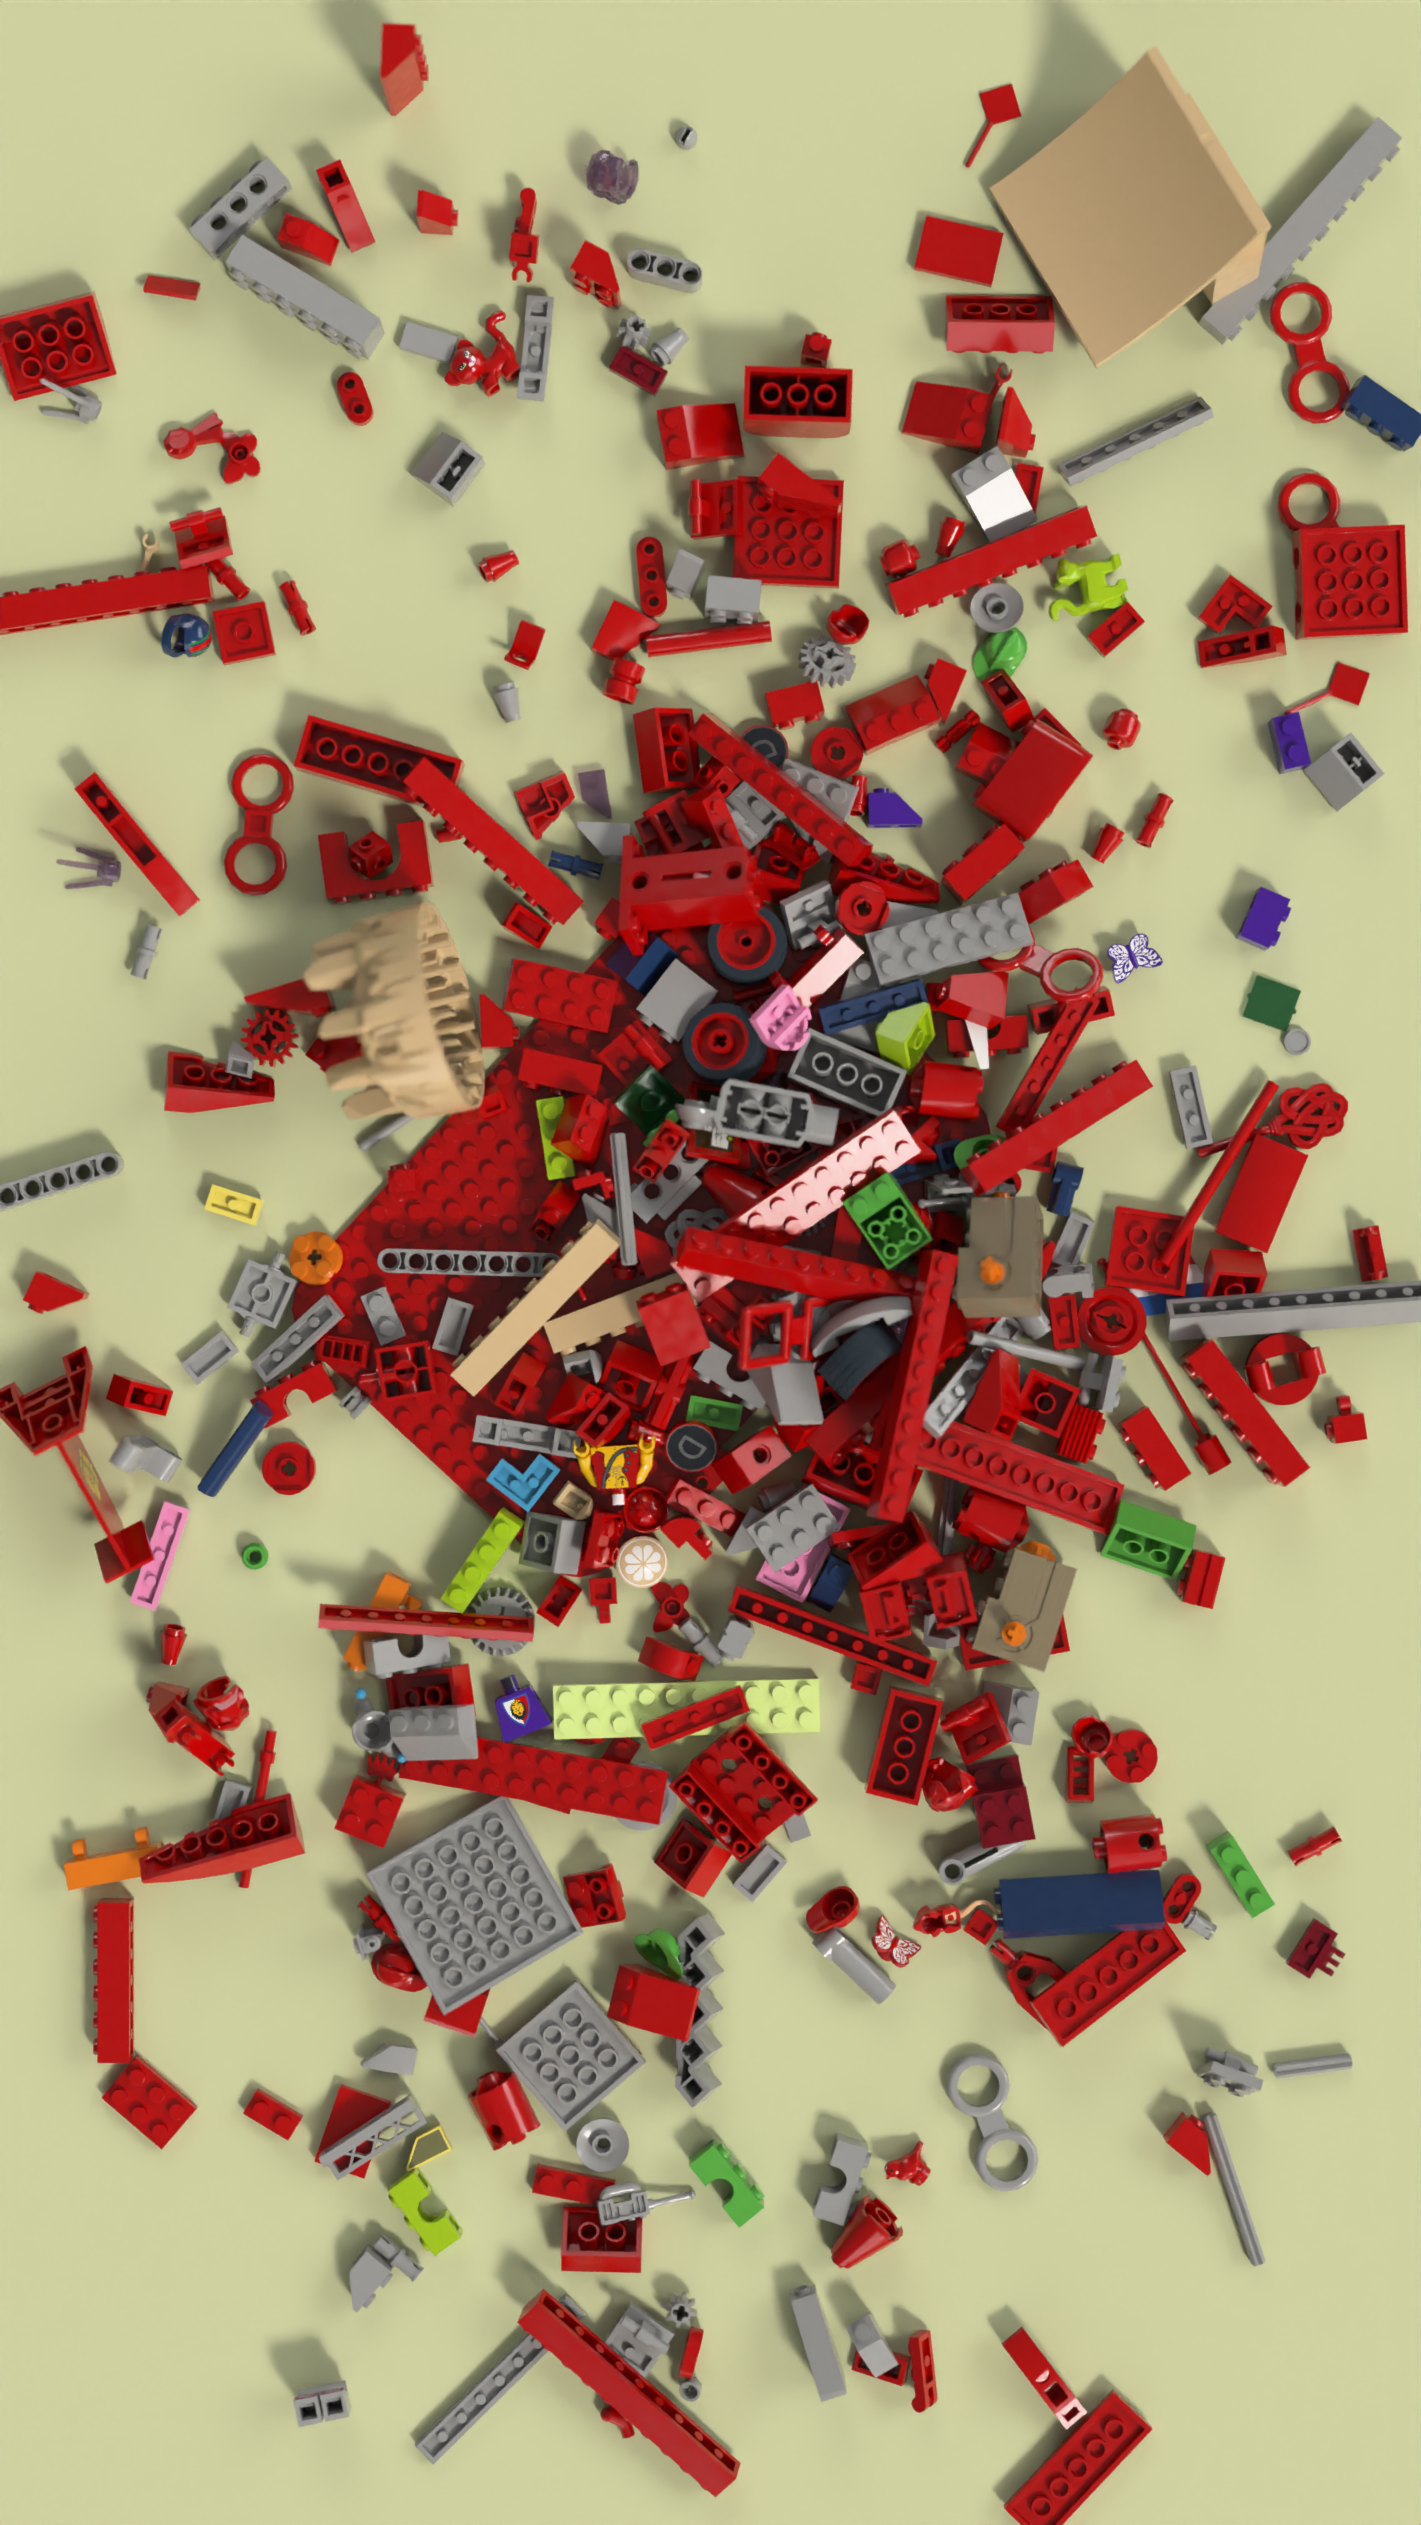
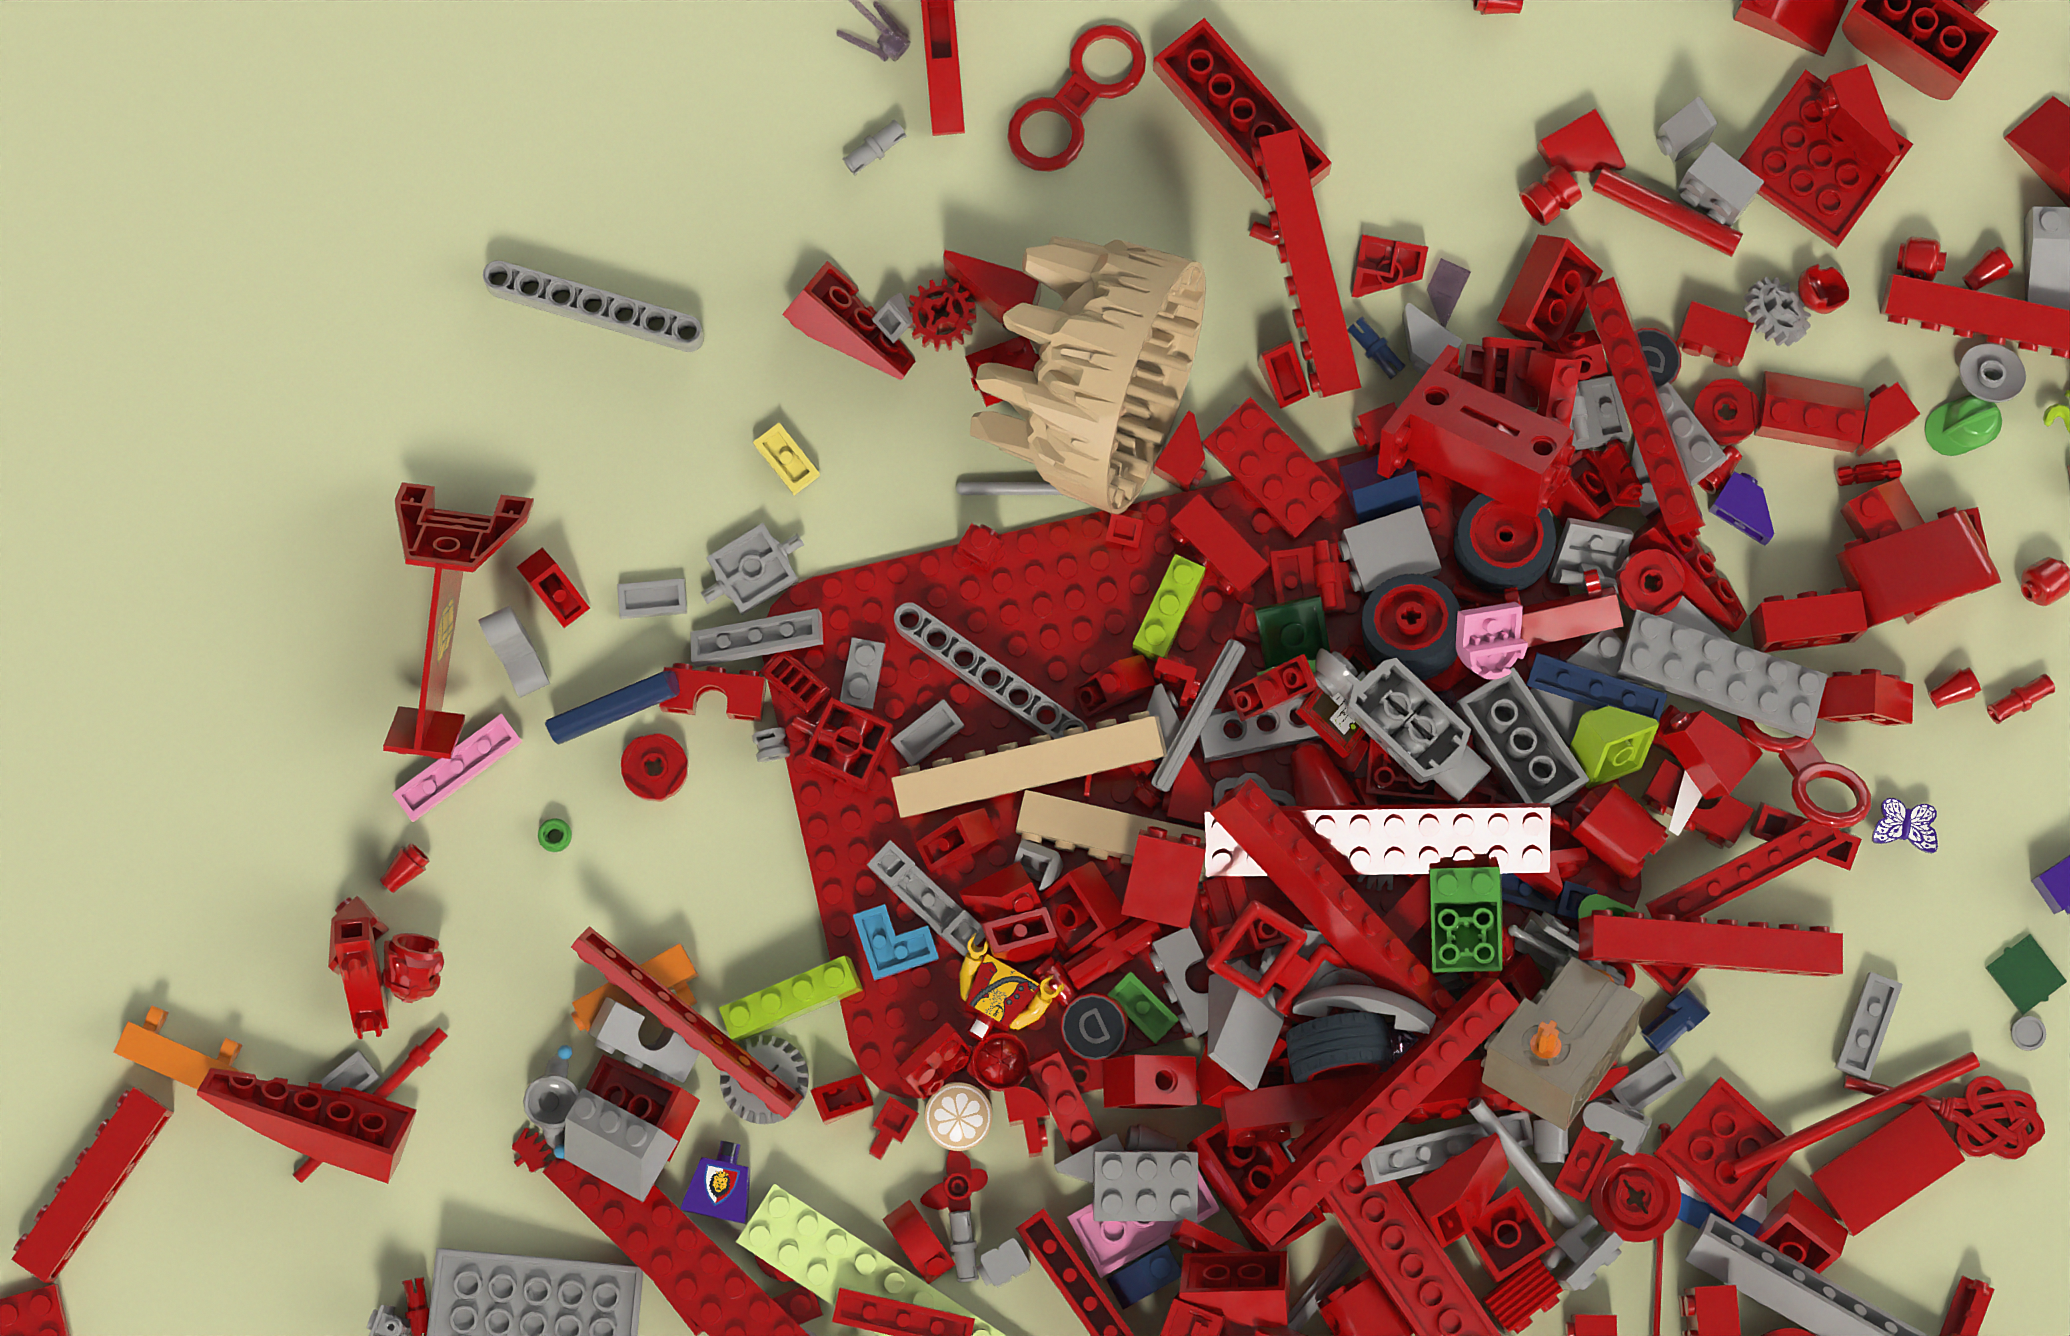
camera: 40 degrees right, 10 degrees down
(50, 1293) = (535, 424): red slope -> none
(305, 1247) = (829, 551): orange plate -> none
(370, 855) = (1171, 198): red brick -> none
(370, 1811) = (487, 1187): red brick -> none
(412, 872) = (1124, 212): red arch -> none
(508, 701) = (1417, 138): light grey cone -> none
(525, 645) = (1474, 95): red bracket -> none
(552, 1543) = (877, 1029): light grey slope -> none
(574, 1501) = (930, 1002): tan plate -> none
(581, 1129) = (1203, 614): red slope -> none
(651, 588) = (1646, 126): red plate -> none
(679, 1197) = (1257, 756): light grey tile -> none
(715, 509) = (1760, 86): red plate -> none
(1008, 700) = (1943, 474): red slope -> none

